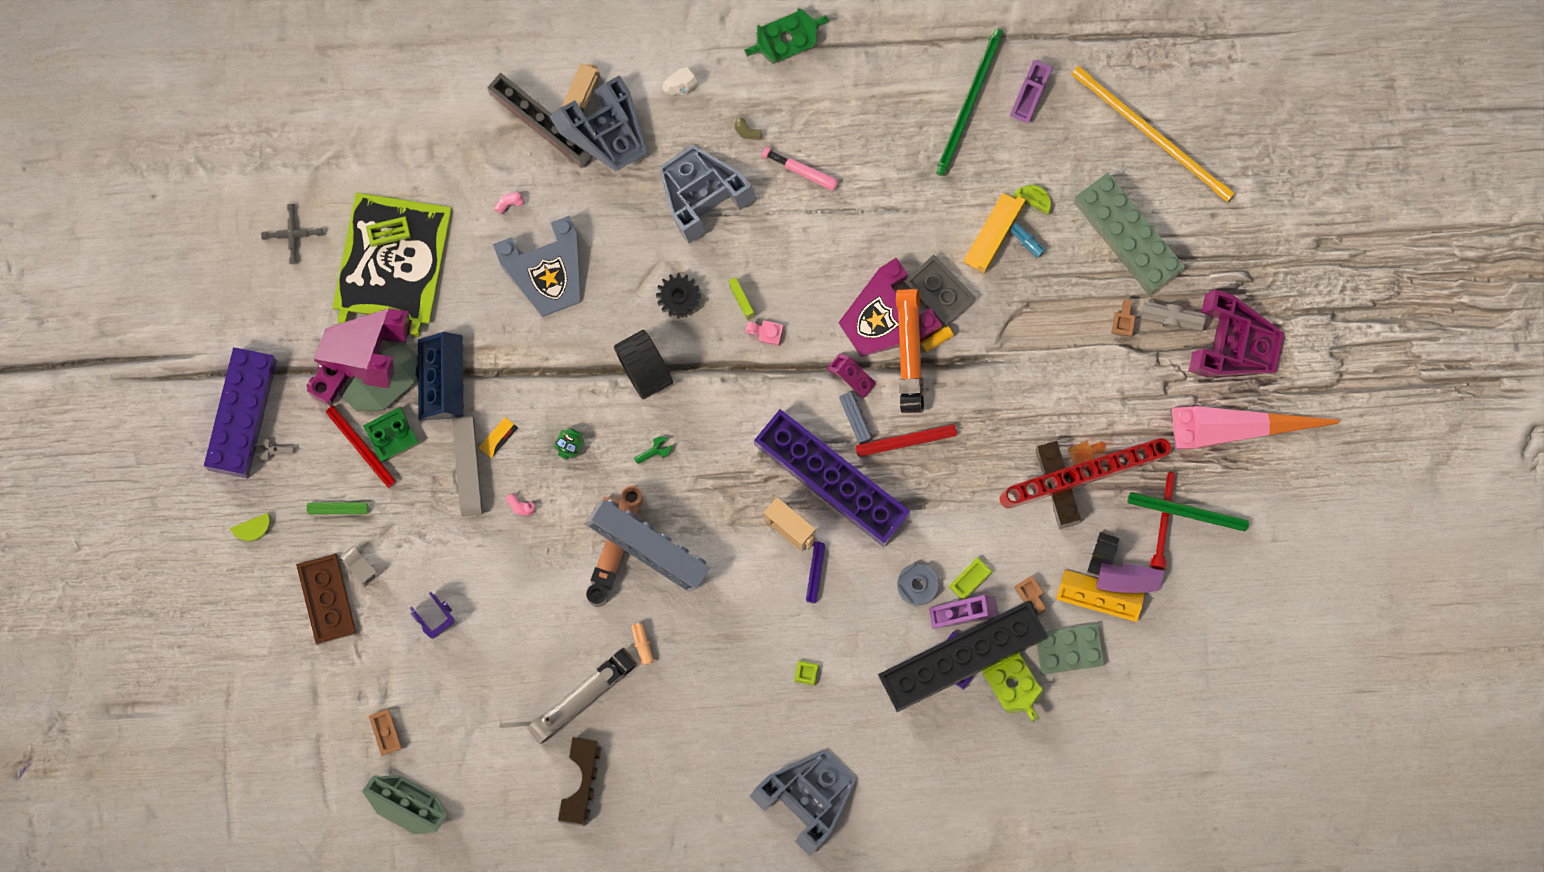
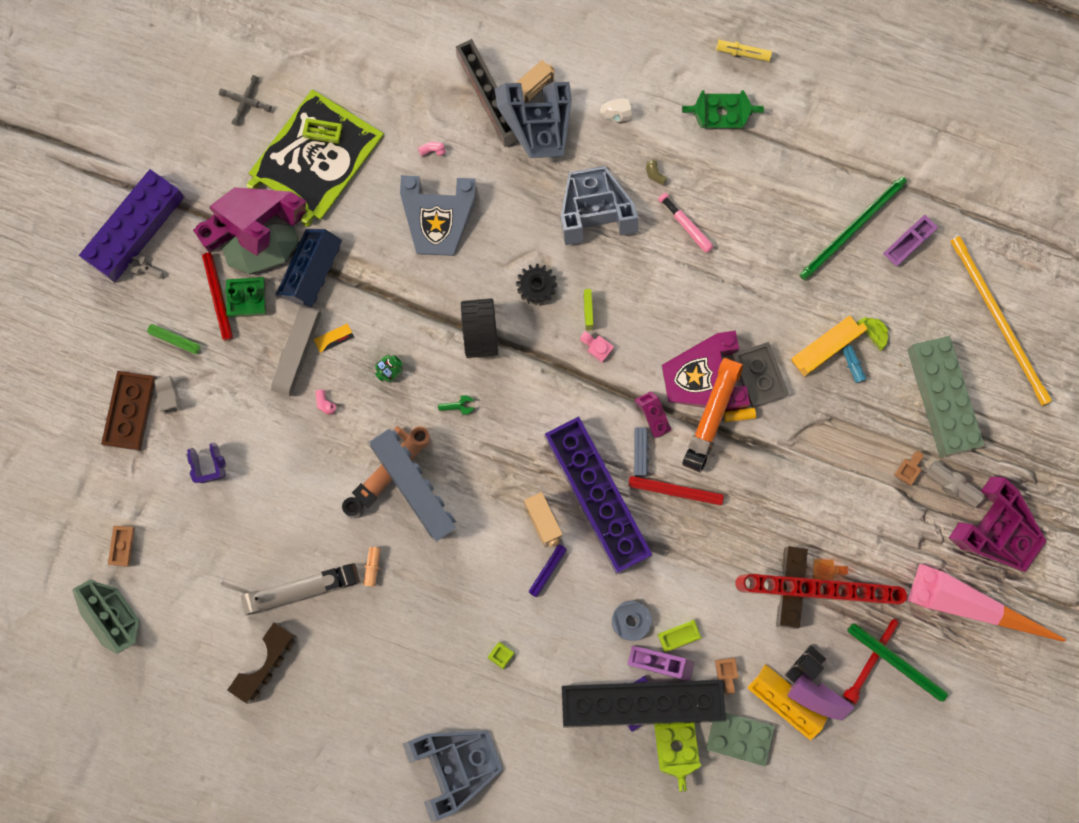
camera: 20 degrees right, 0 degrees up
(252, 529) = (97, 325): lime tile -> none

